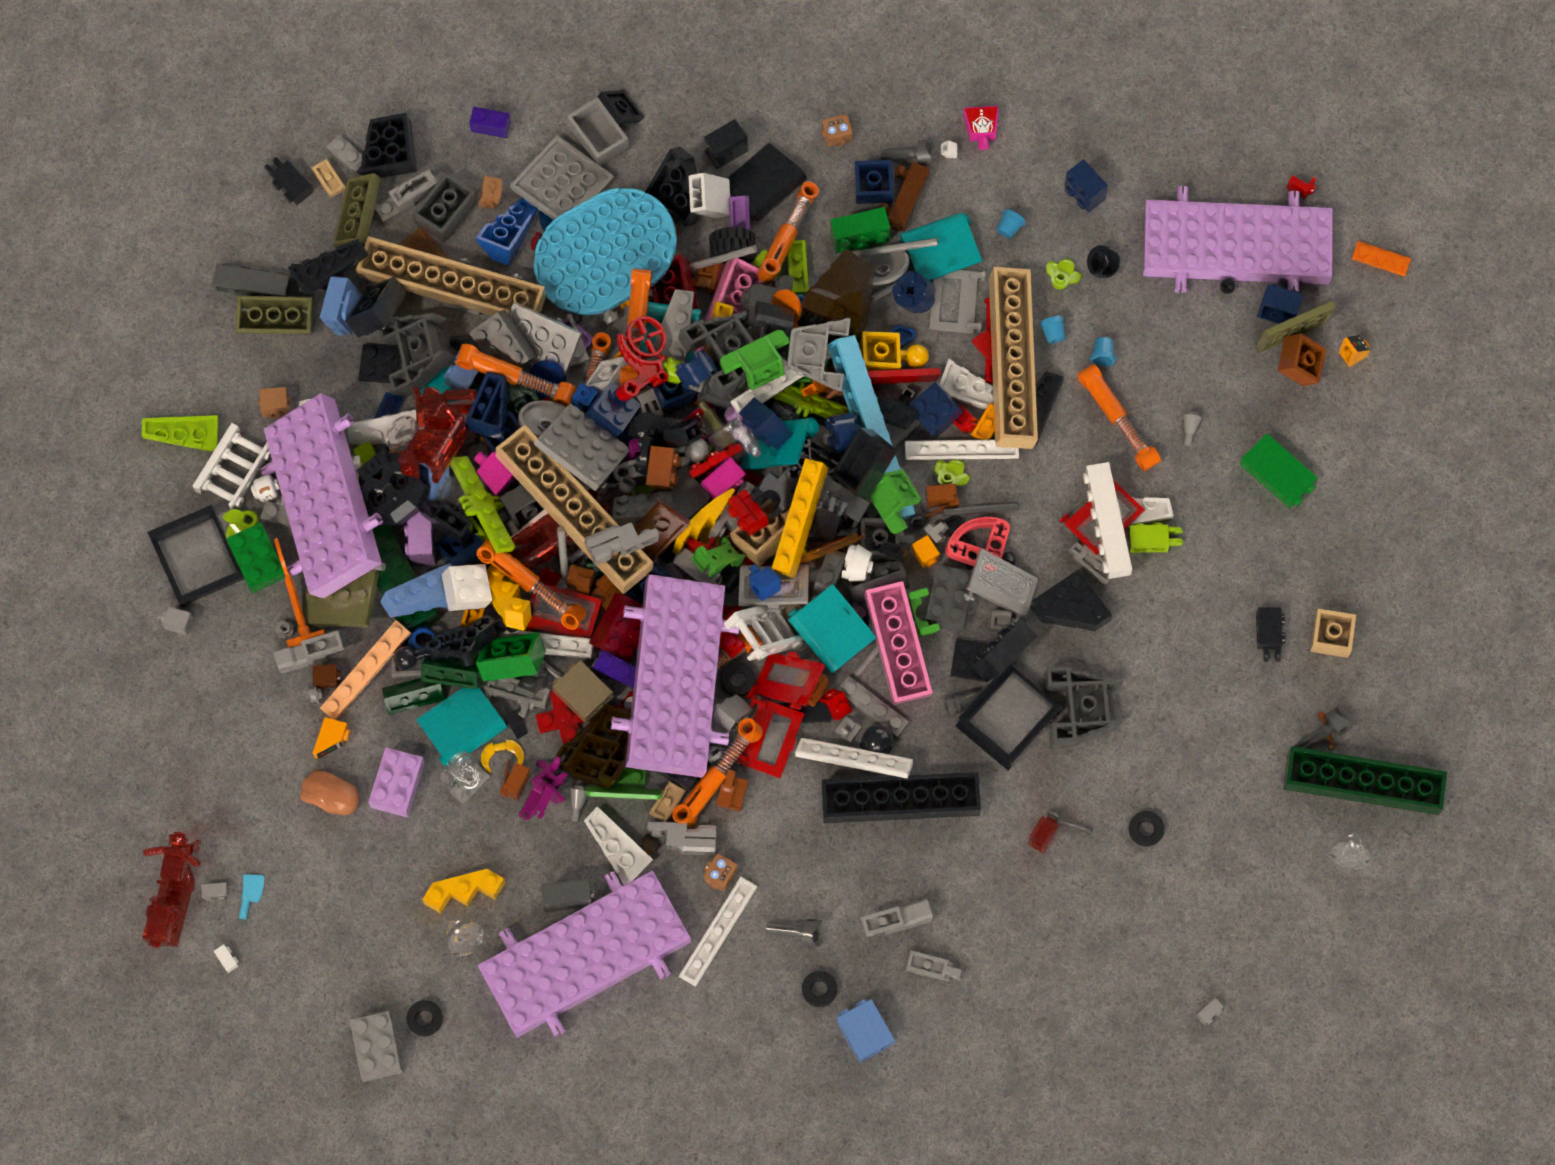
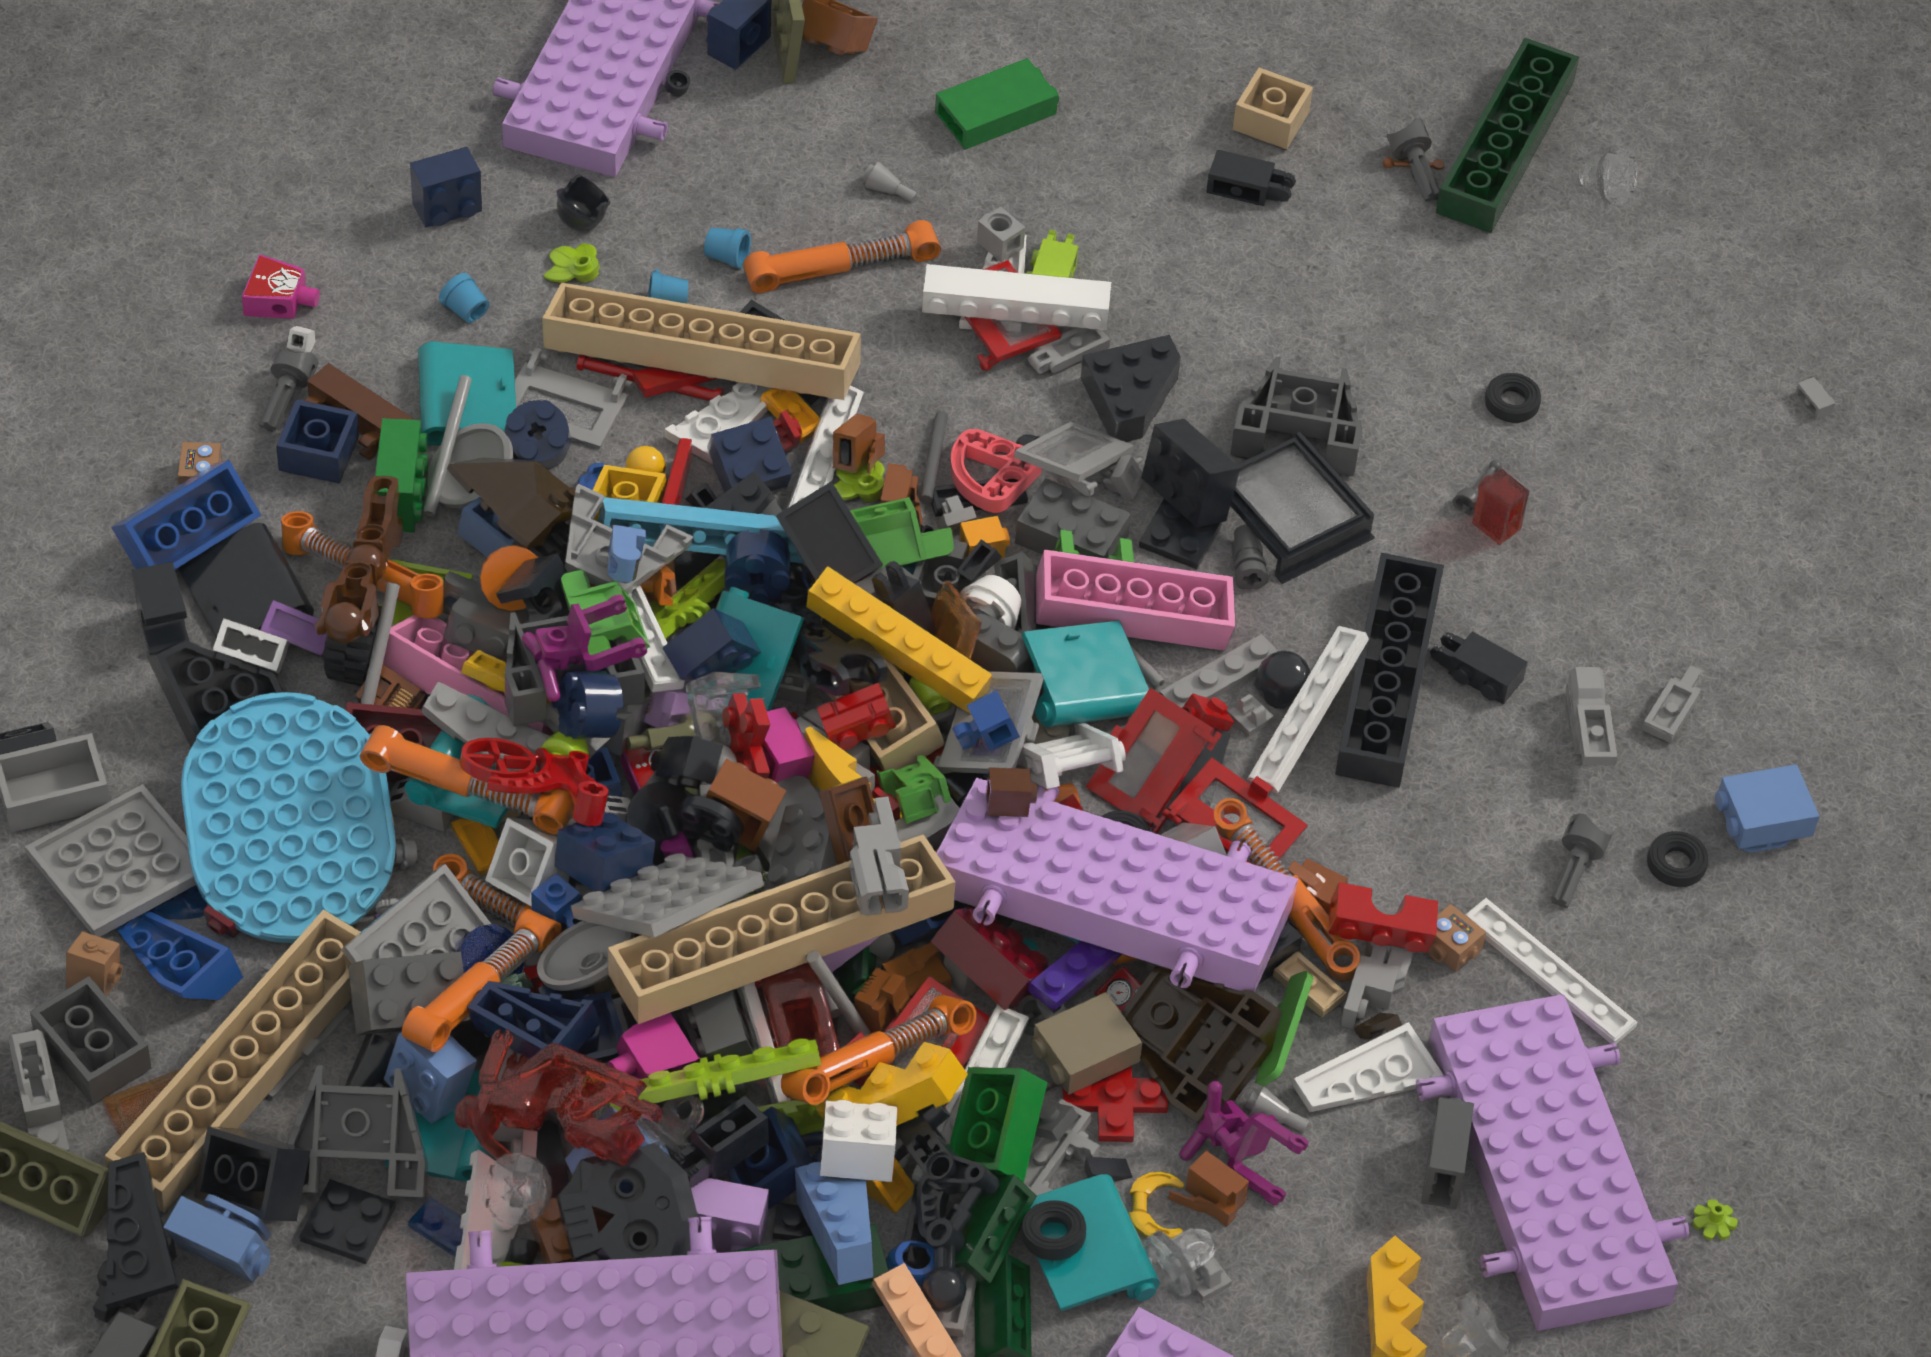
camera: 80 degrees left, 20 degrees down
(456, 691) = (1054, 1212): none -> black tyre
(579, 1054) = (1714, 1220): none -> lime plant
(706, 844) = (1356, 917): none -> red arch
(707, 602) = (1009, 792): none -> reddish brown brick
(718, 346) = (569, 644): none -> magenta piece
(789, 135) = (188, 518): none -> blue brick
(800, 230) = (364, 566): none -> reddish brown piece
(802, 354) = (625, 552): none -> medium blue leg
(923, 851) = (1480, 665): none -> black hinge
(968, 464) = (857, 444): none -> dark orange piece
(1156, 505) = (1000, 234): none -> light grey brick

